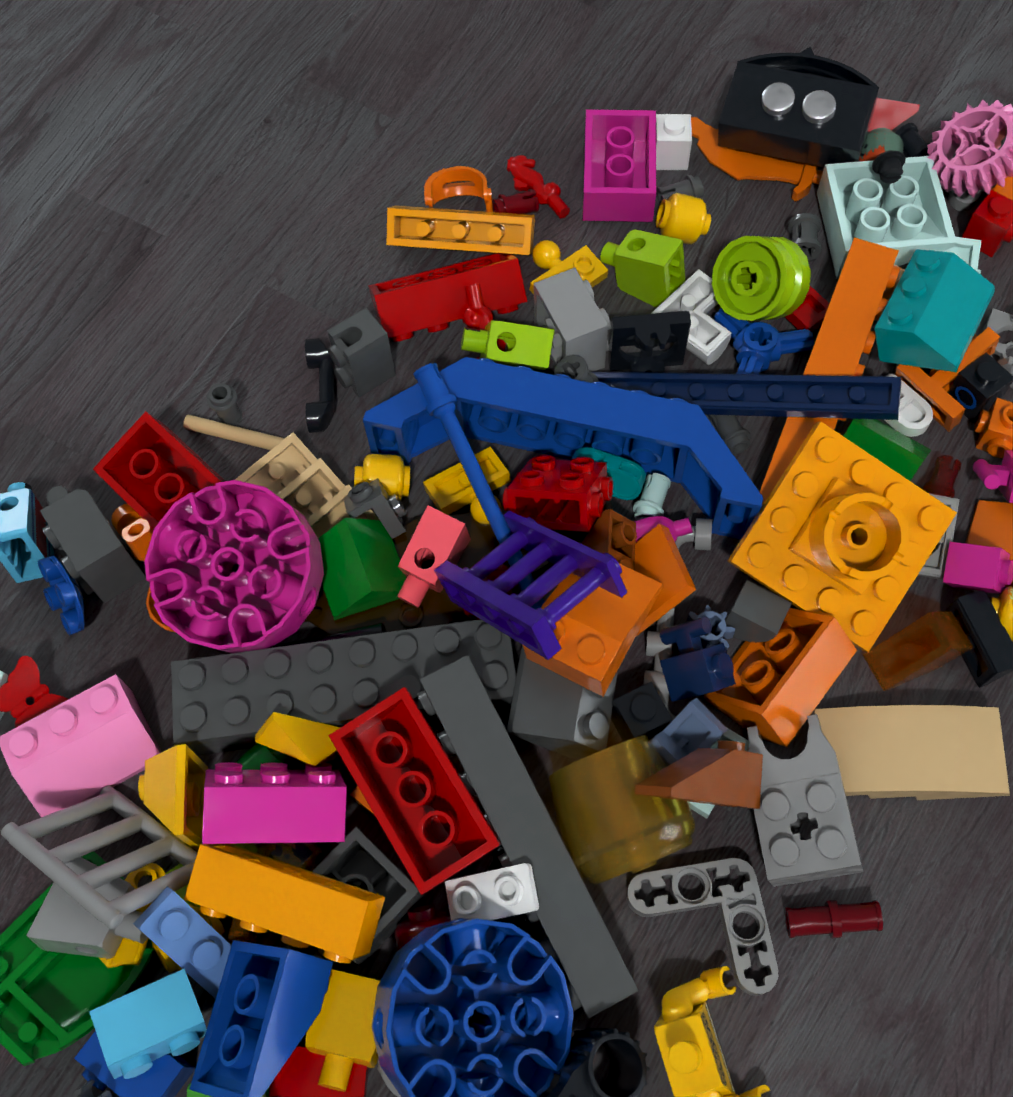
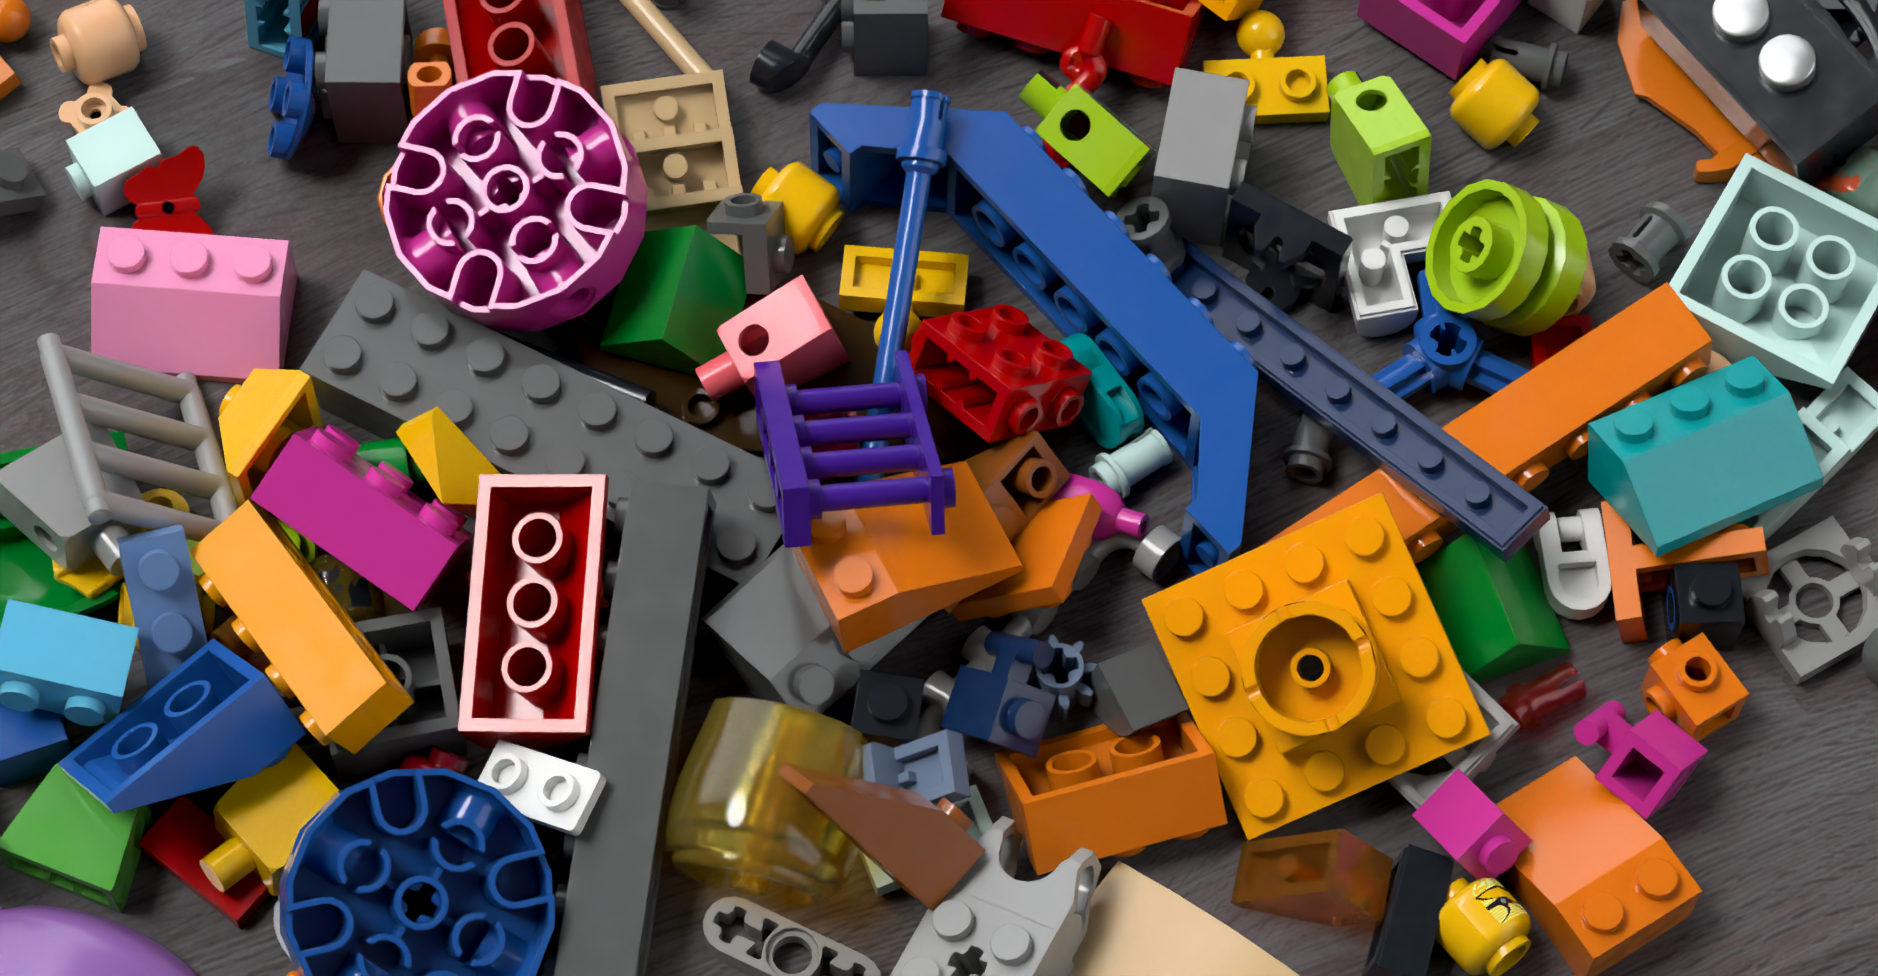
camera: 30 degrees right, 0 degrees up
(889, 166) = (1826, 214): black piece -> none

